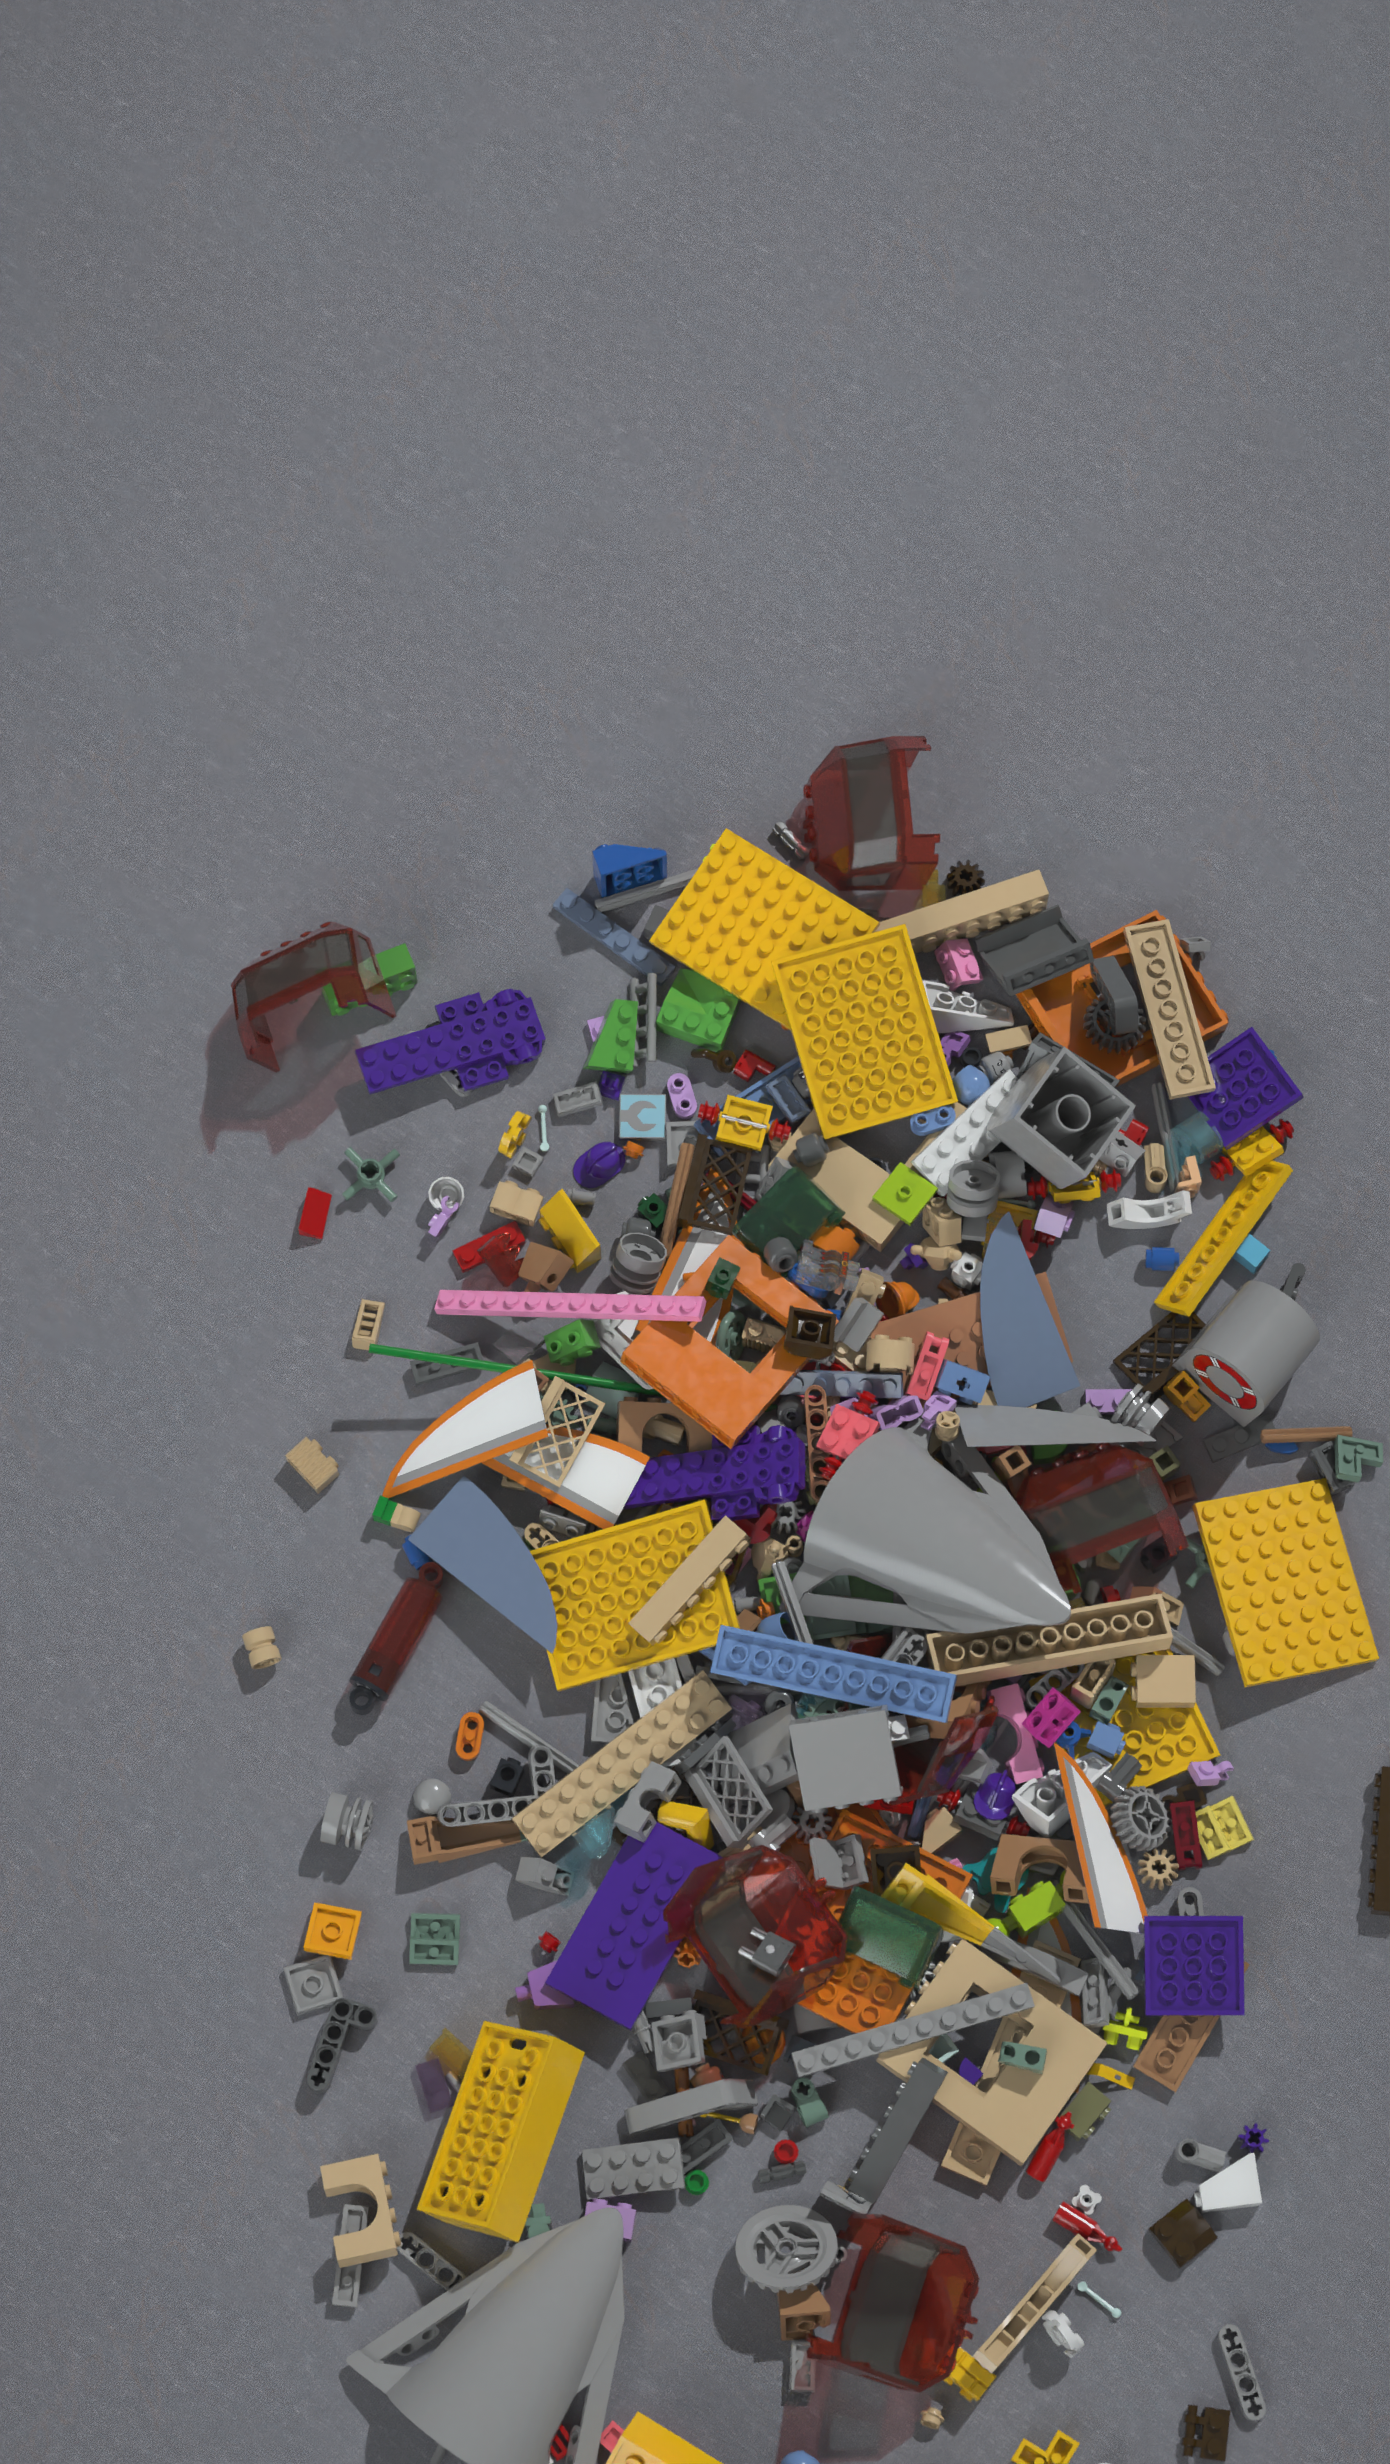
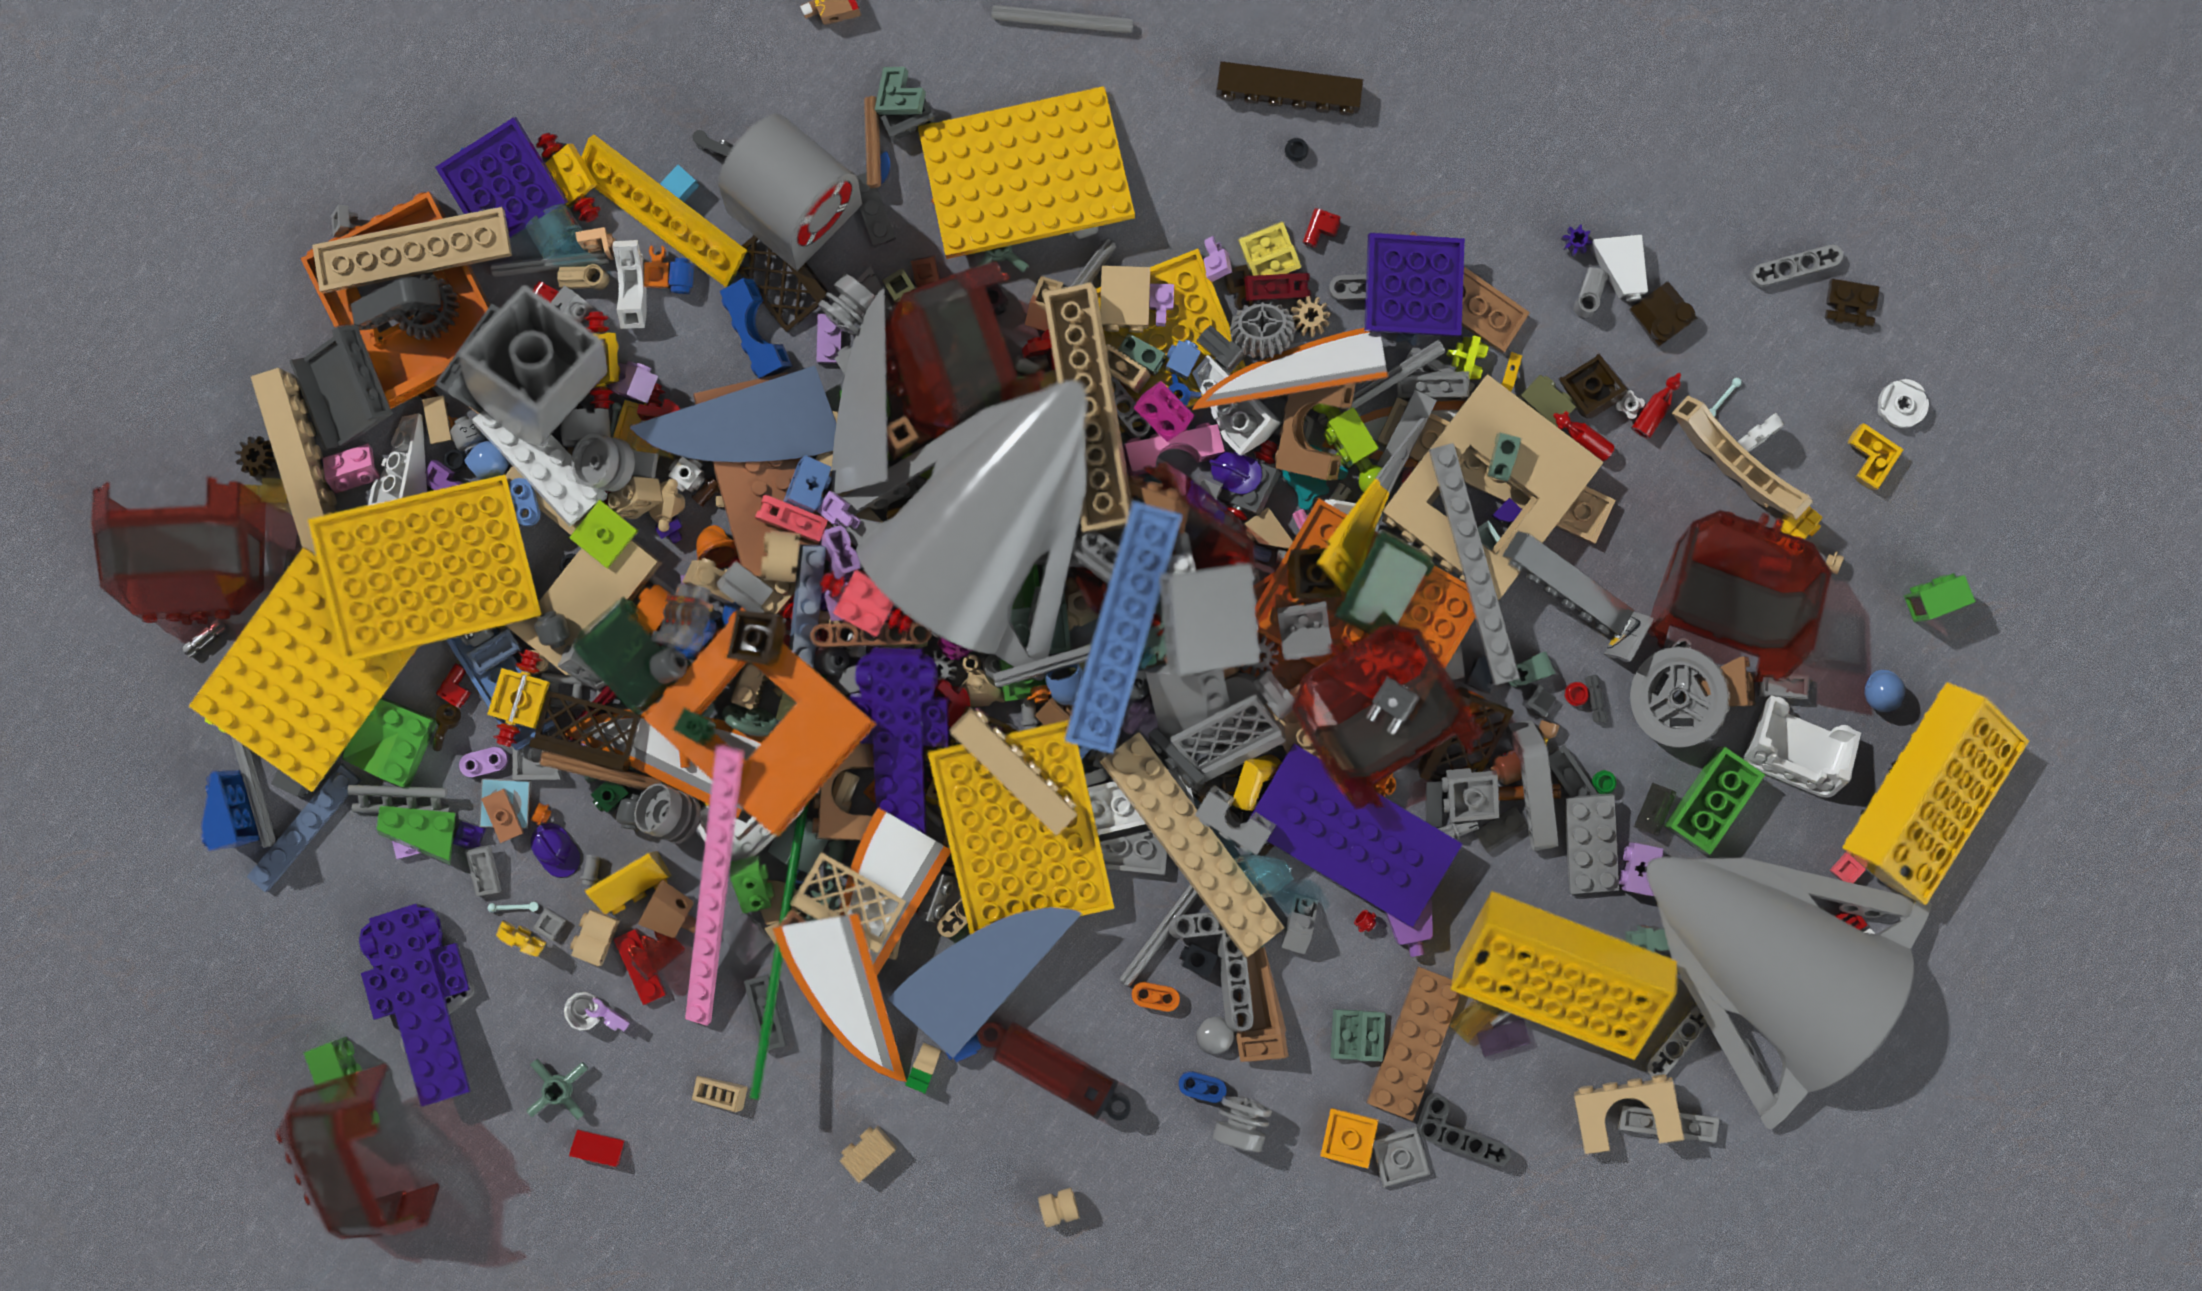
camera: 90 degrees left, 15 degrees up
(381, 1785) = (1202, 1085): none -> blue plate
(425, 1995) = (1414, 1044): none -> medium nougat plate
(631, 1114) = (502, 815): none -> nougat plate
(670, 2234) = (1655, 809): none -> clear smoke plate
(681, 2292) = (1714, 800): none -> bright green brick
(737, 2383) = (1801, 751): none -> white windscreen
(947, 1426) = (852, 498): tan wheel -> none
(1101, 2158) = (1593, 387): none -> dark brown slope
(1137, 1316) = (742, 302): none -> blue arch
(1164, 1235) = (656, 272): none -> orange plate
(1166, 1718) = (1161, 299): none -> lavender plate
(1183, 1392) = (828, 259): light orange brick -> none
(1254, 1876) = (1321, 222): none -> red piece
(1327, 1851) = (1296, 150): none -> black plate

